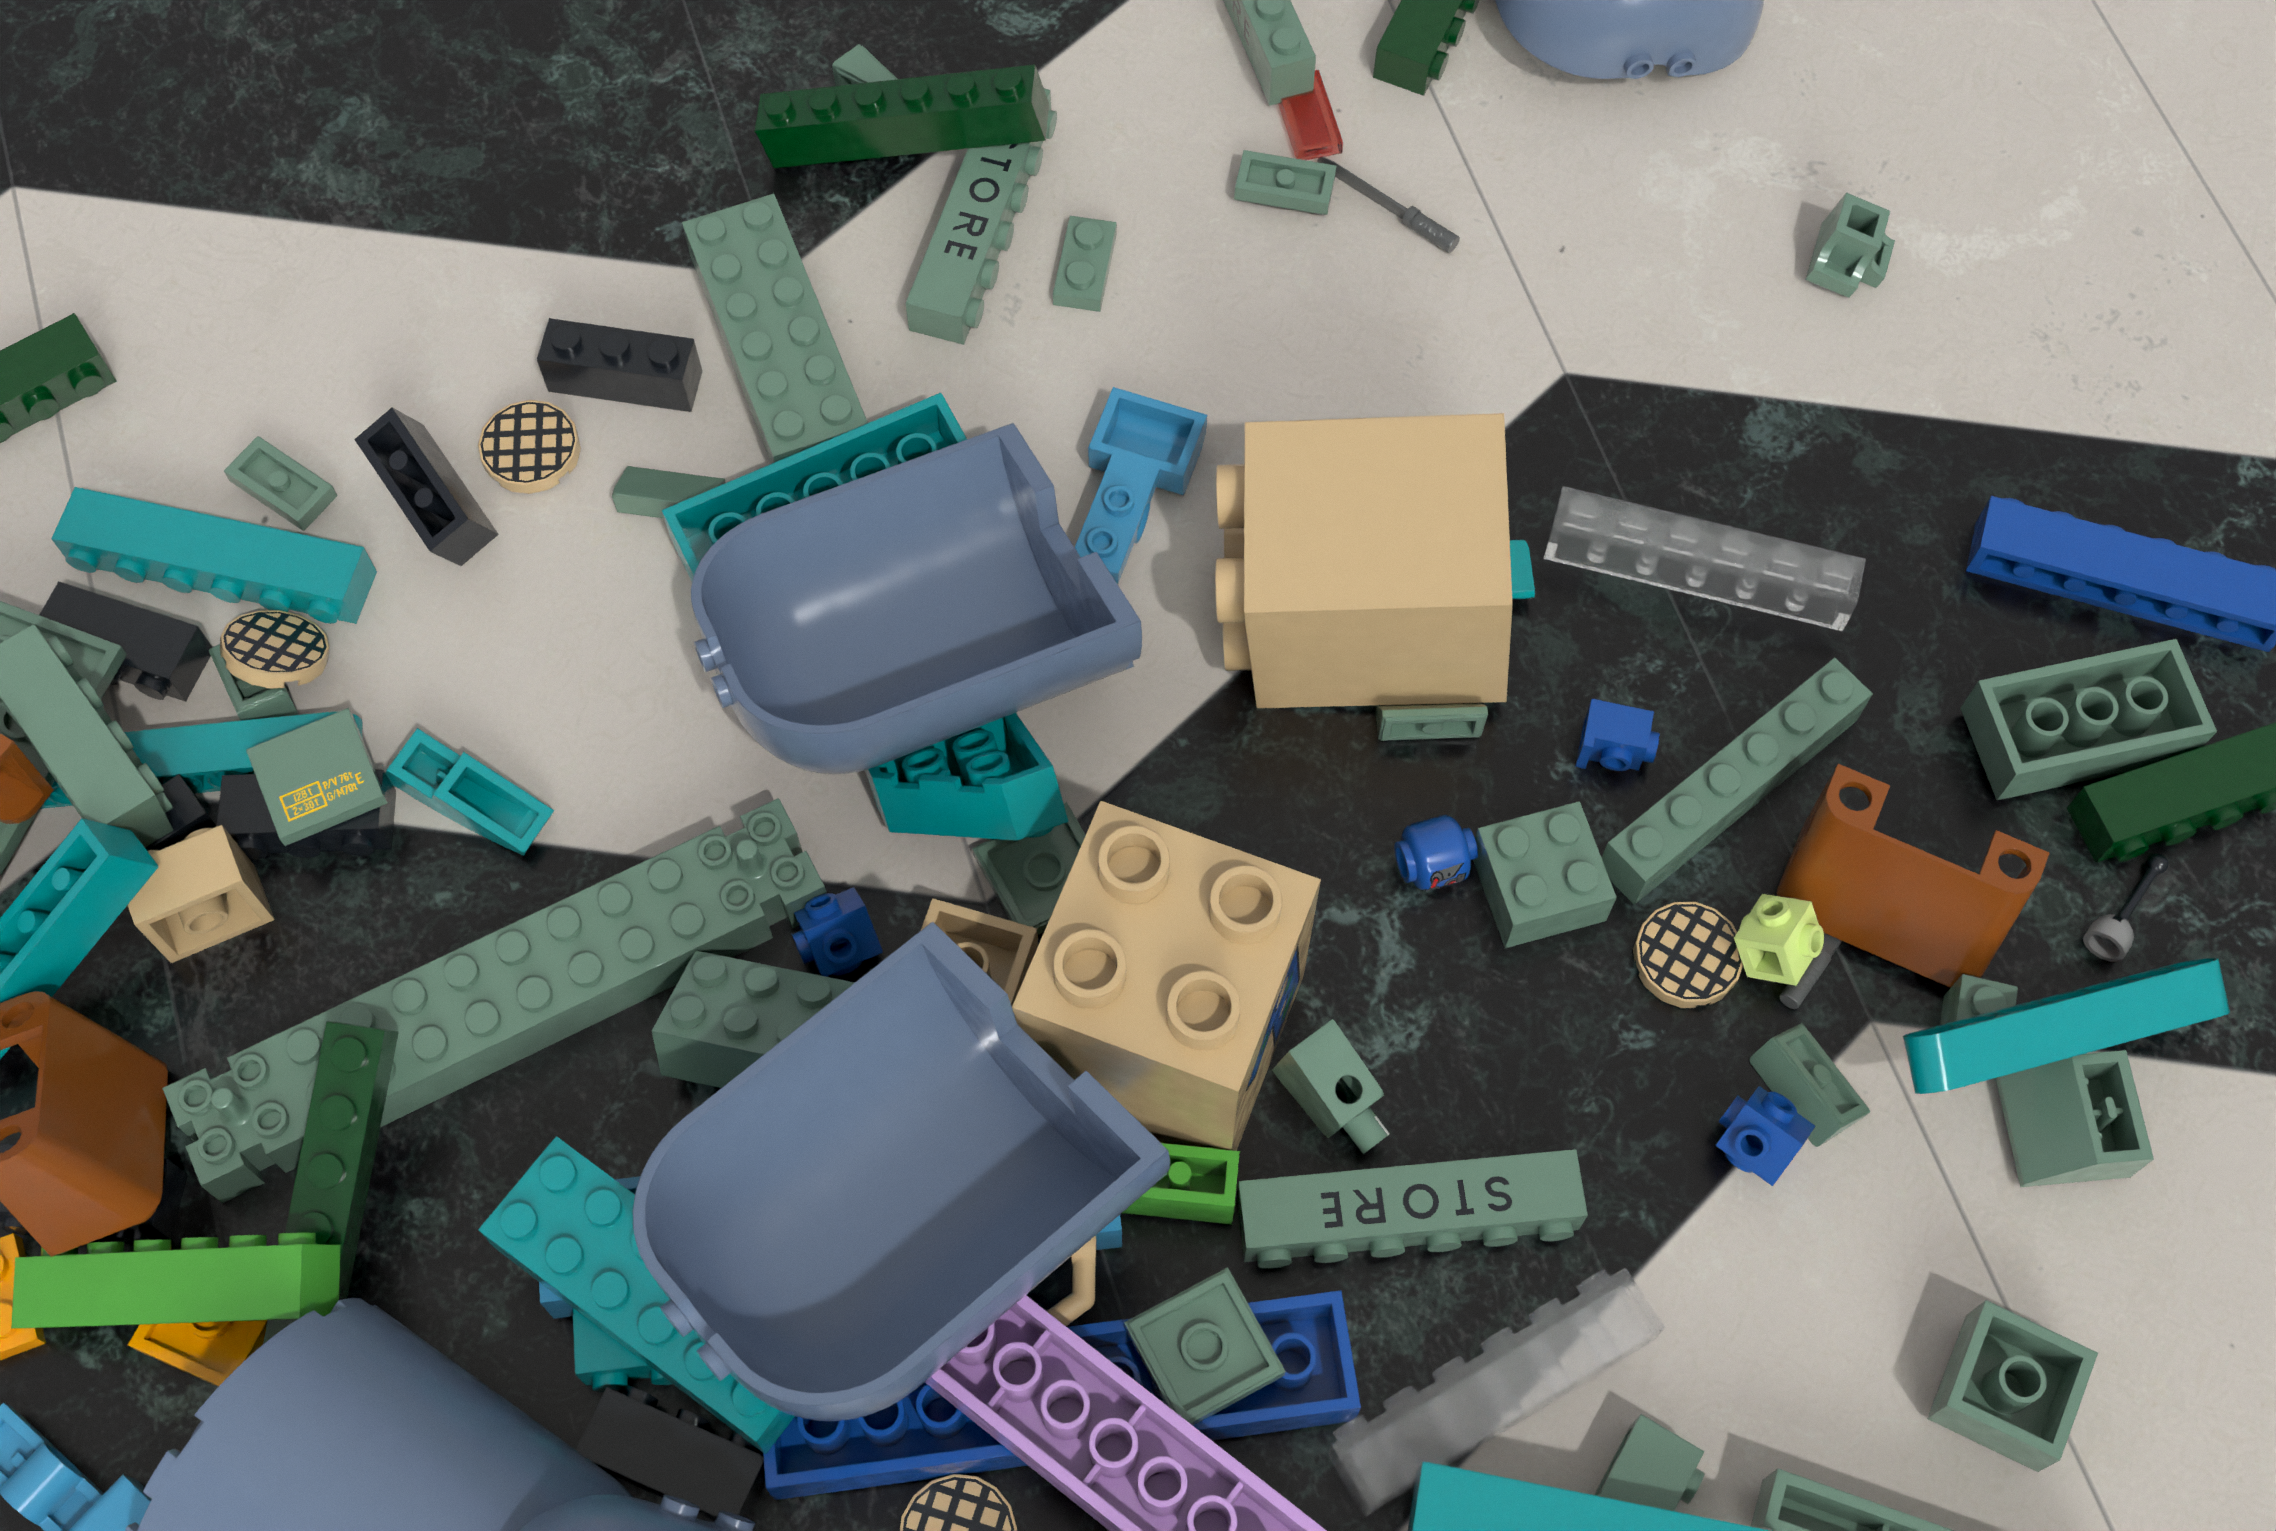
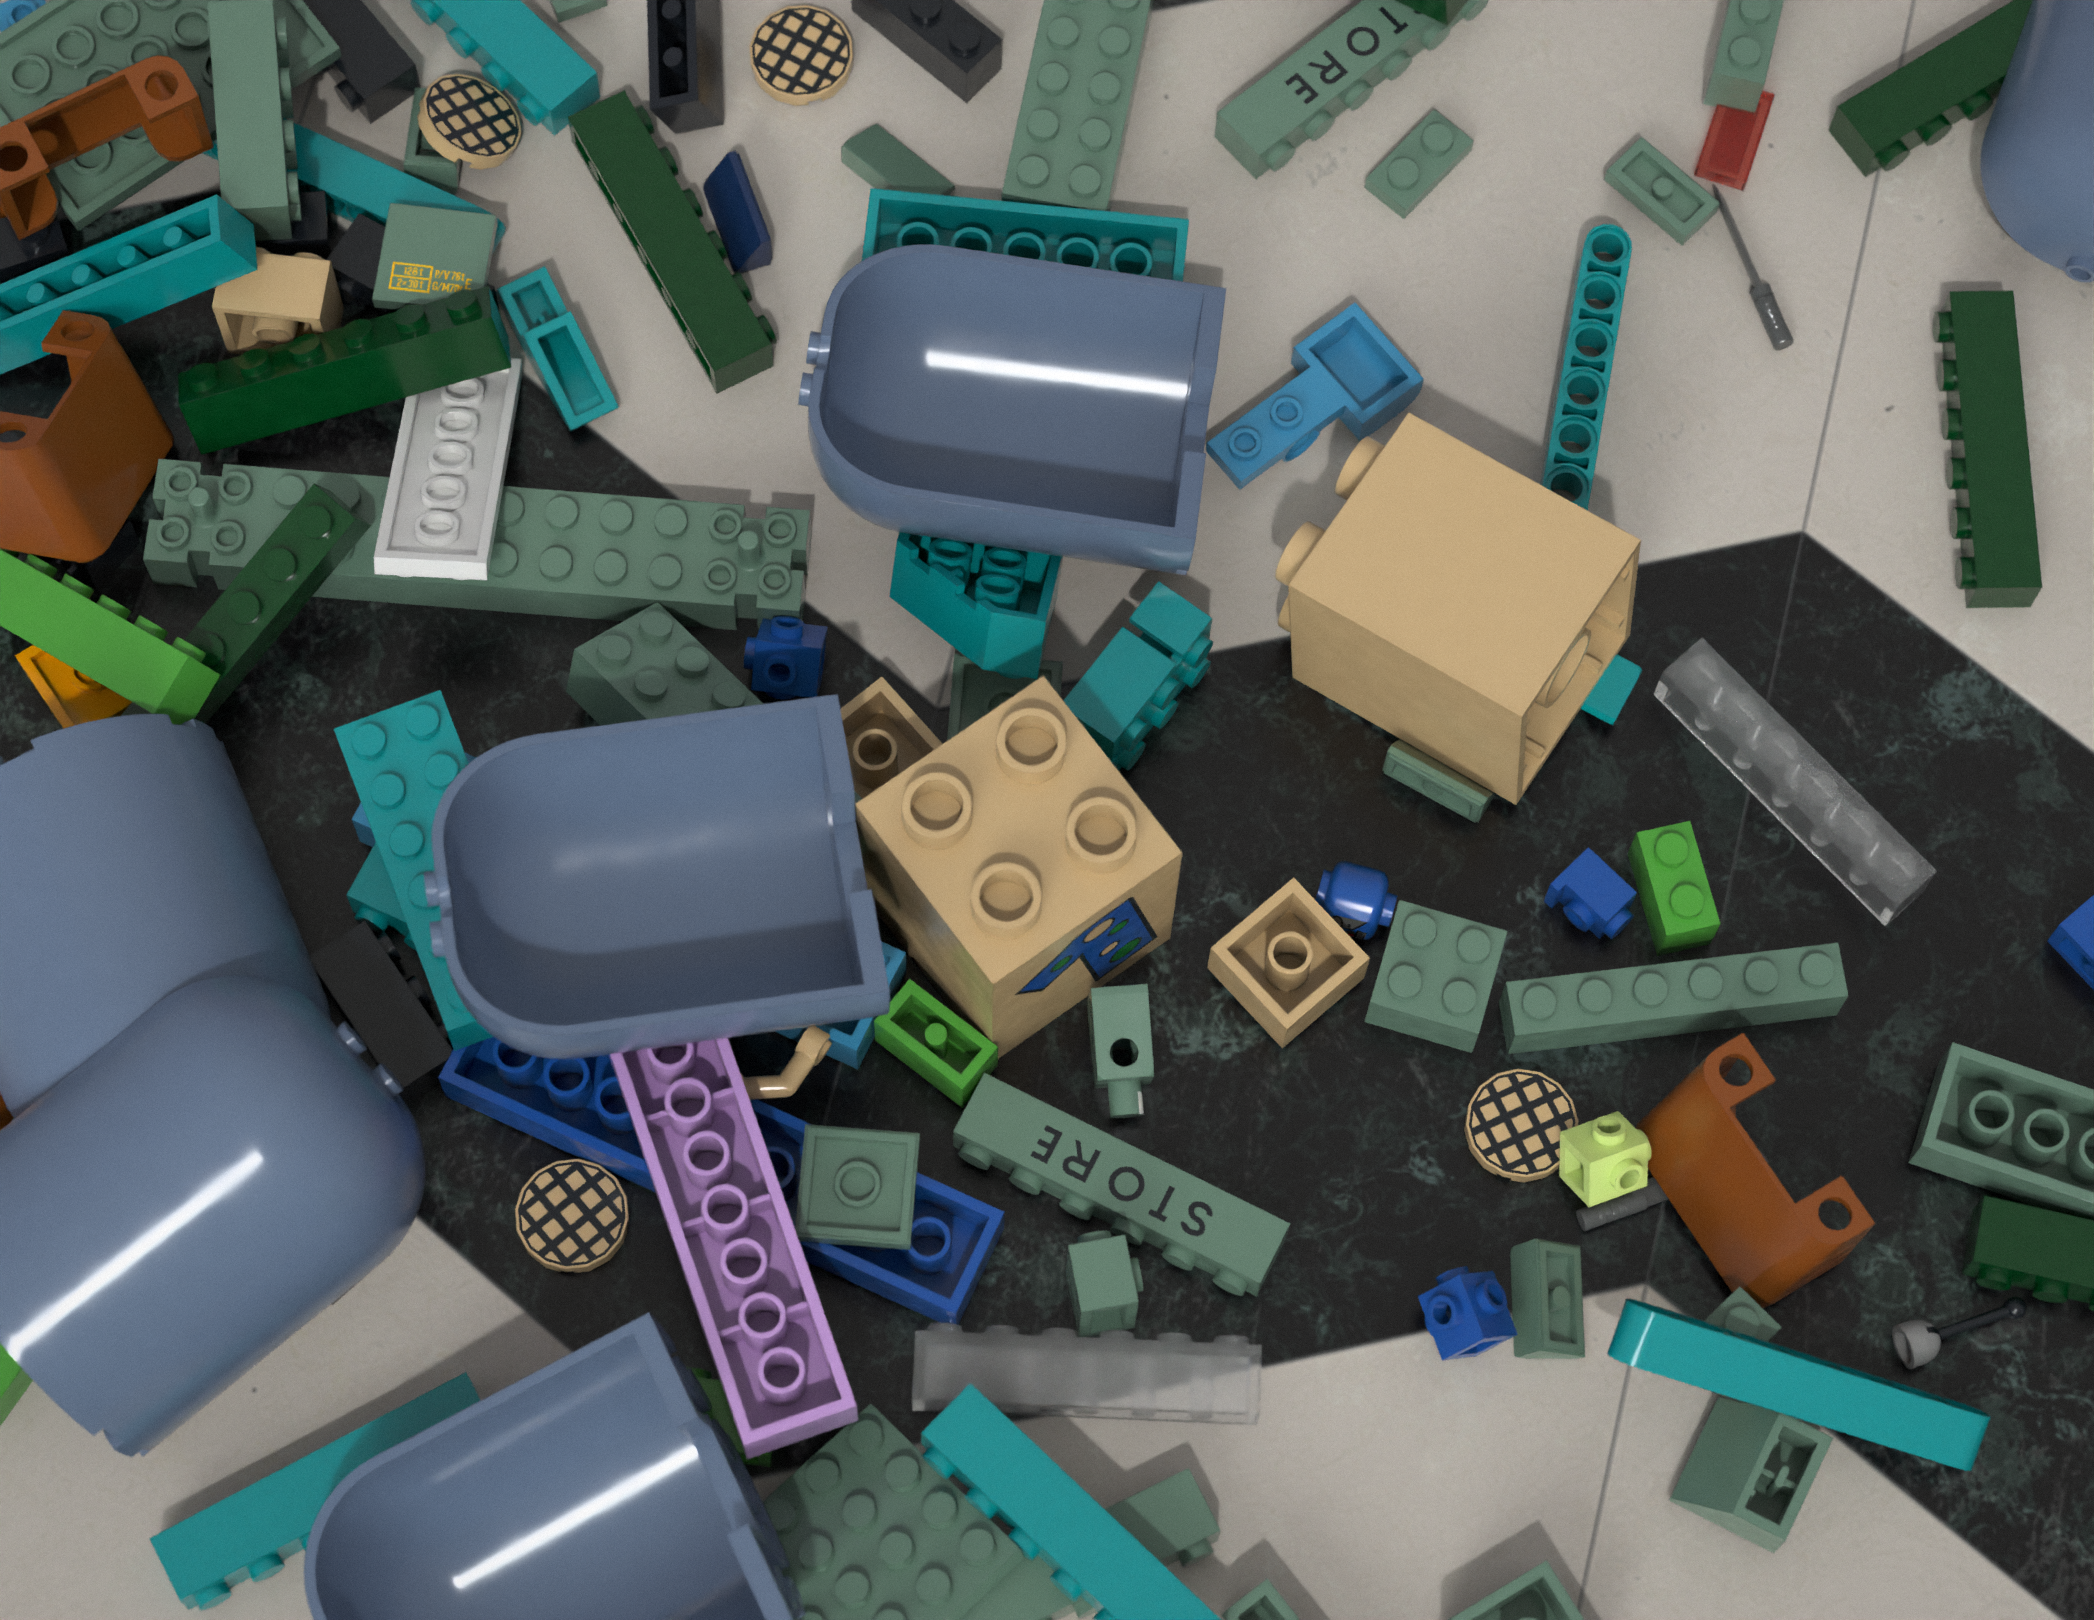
camera: 30 degrees right, 5 degrees up
(287, 915) = (344, 370): none -> dark green brick
(440, 944) = (449, 479): none -> white plate
(514, 649) = (672, 242): none -> dark green brick
(557, 598) = (738, 215): none -> dark blue slope
(1148, 752) = (1141, 676): none -> teal piece
(1315, 307) = (1587, 374): none -> teal beam
(1421, 934) = (1288, 962): none -> tan brick
(1459, 1300) = (1103, 1283): none -> sand green brick
(1663, 235) = (1988, 450): none -> dark green brick
(1684, 697) = (1673, 888): none -> bright green brick

